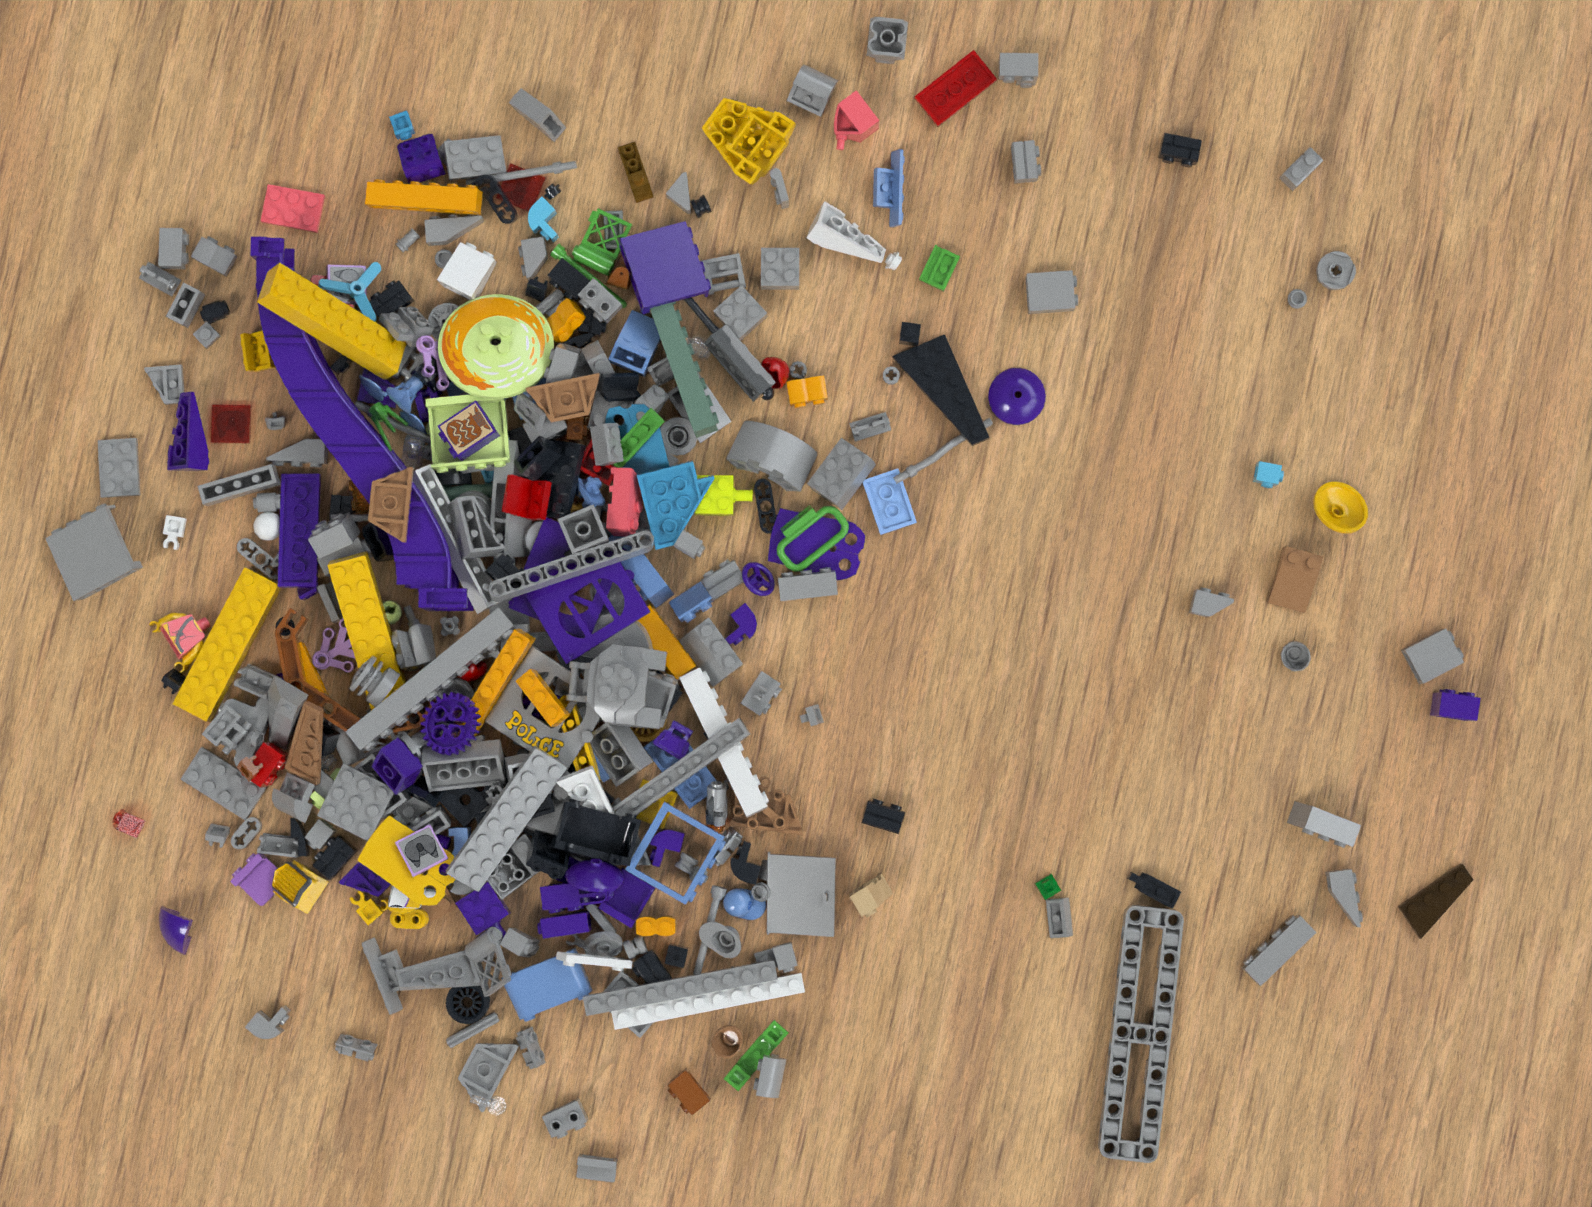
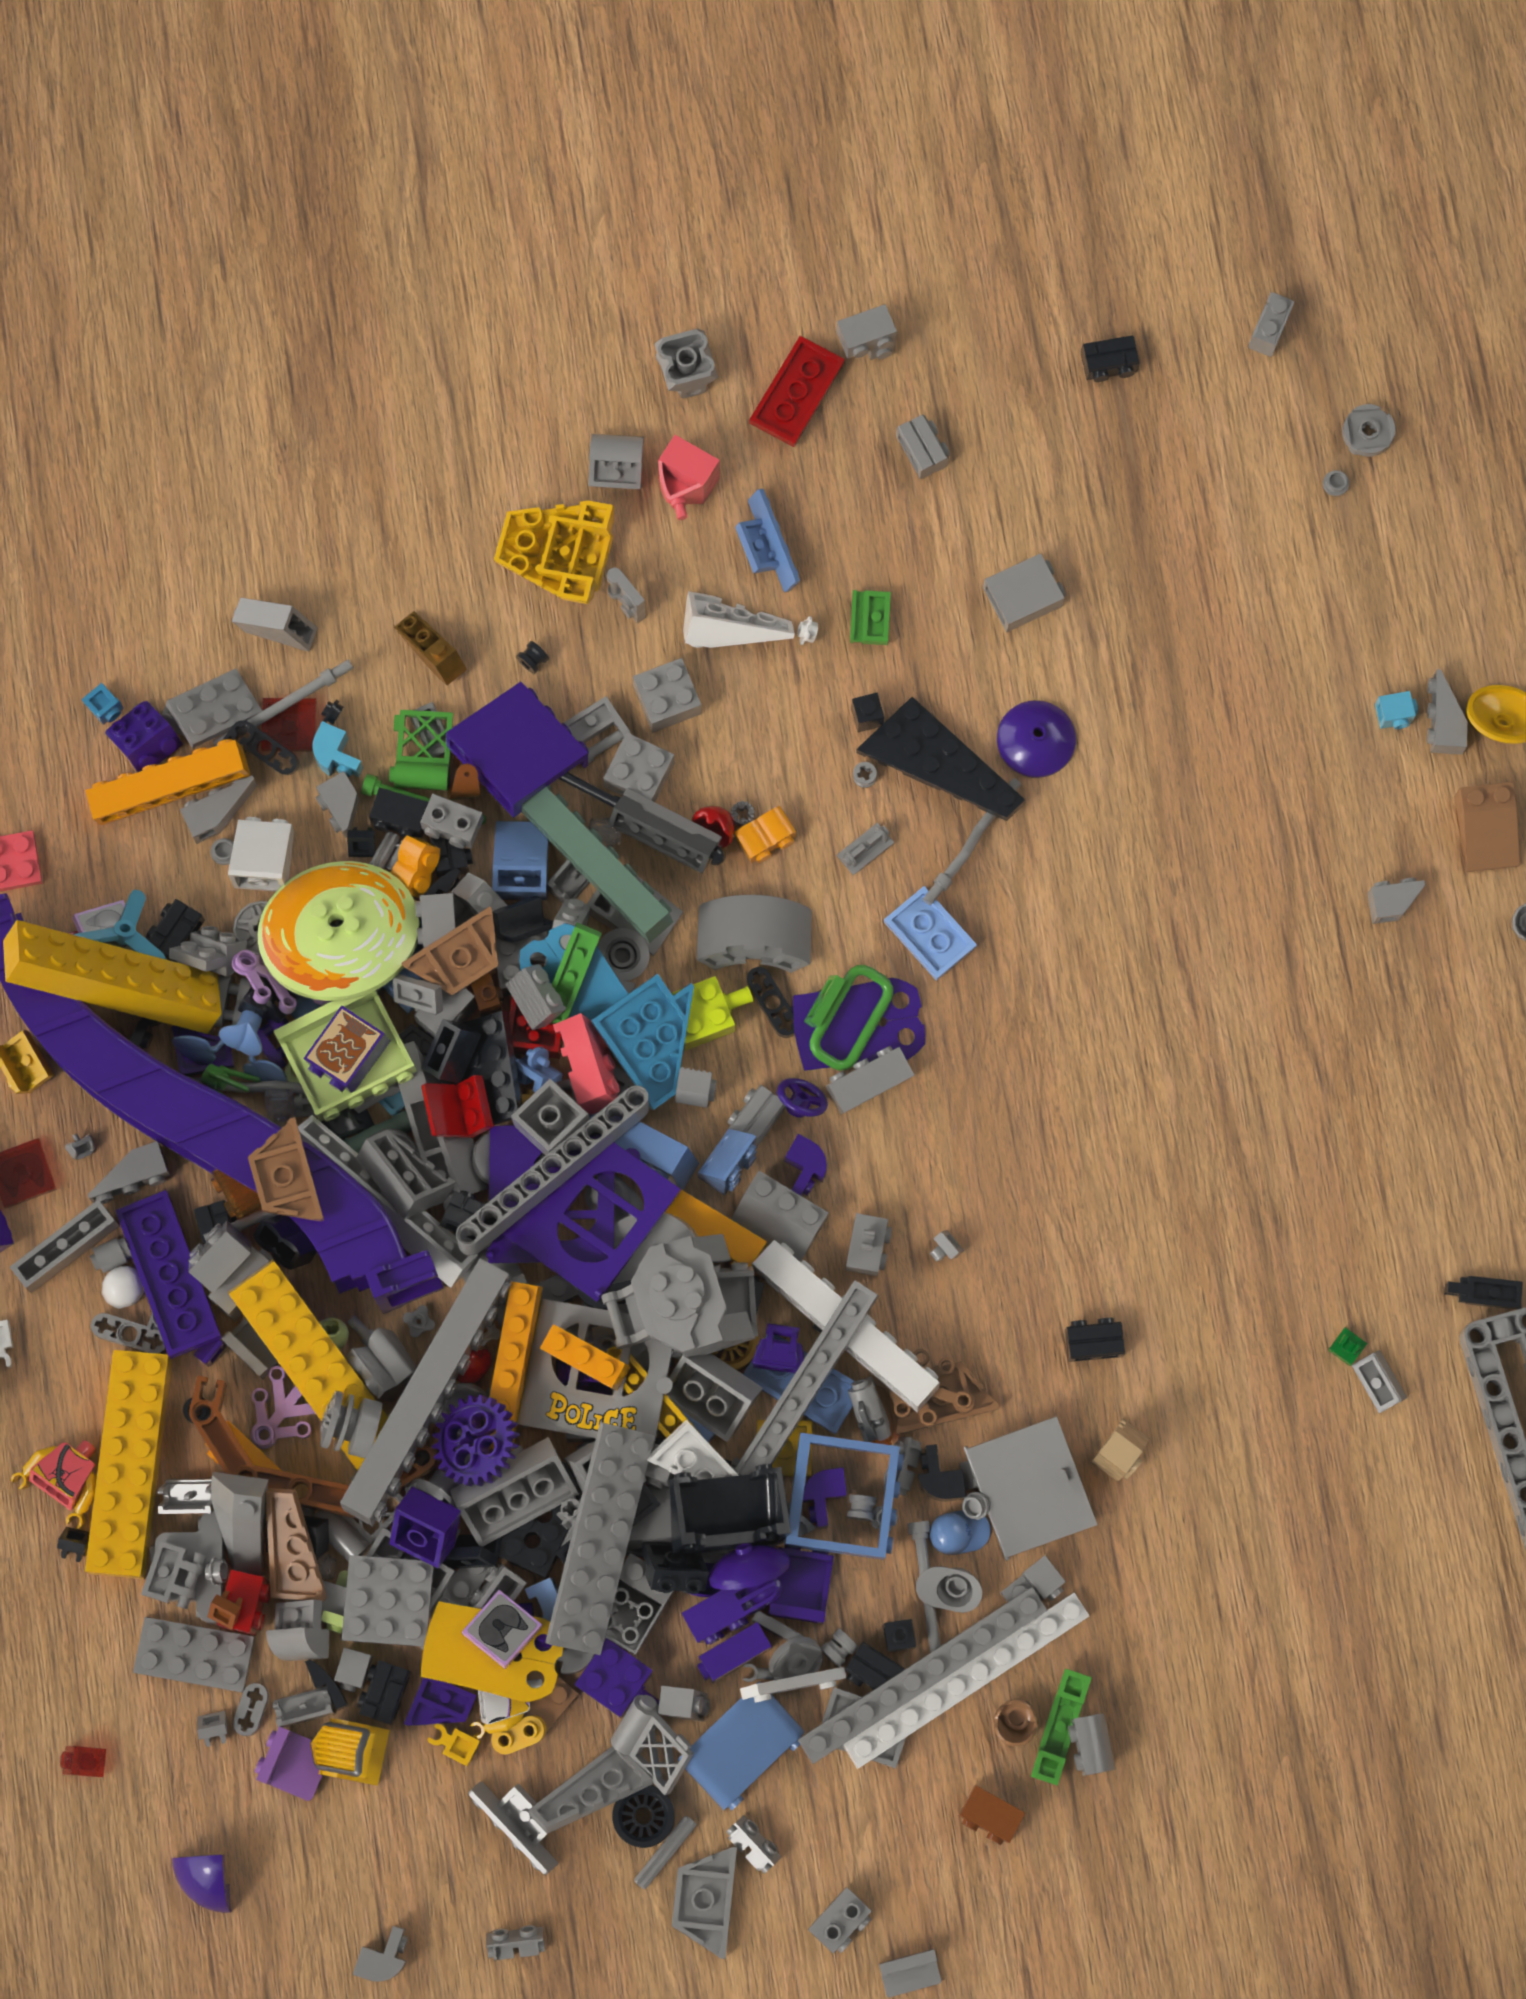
camera: 30 degrees left, 10 degrees down
(405, 242) = (166, 846): light grey pin -> none
(495, 1105) = (738, 1942): clear plate -> none
(651, 925) = (863, 1604): light orange brick -> none
(679, 193) = (499, 652): light grey slope -> none
(841, 473) = (854, 920): light grey brick -> none
(1299, 496) = (1448, 722): none -> light grey slope

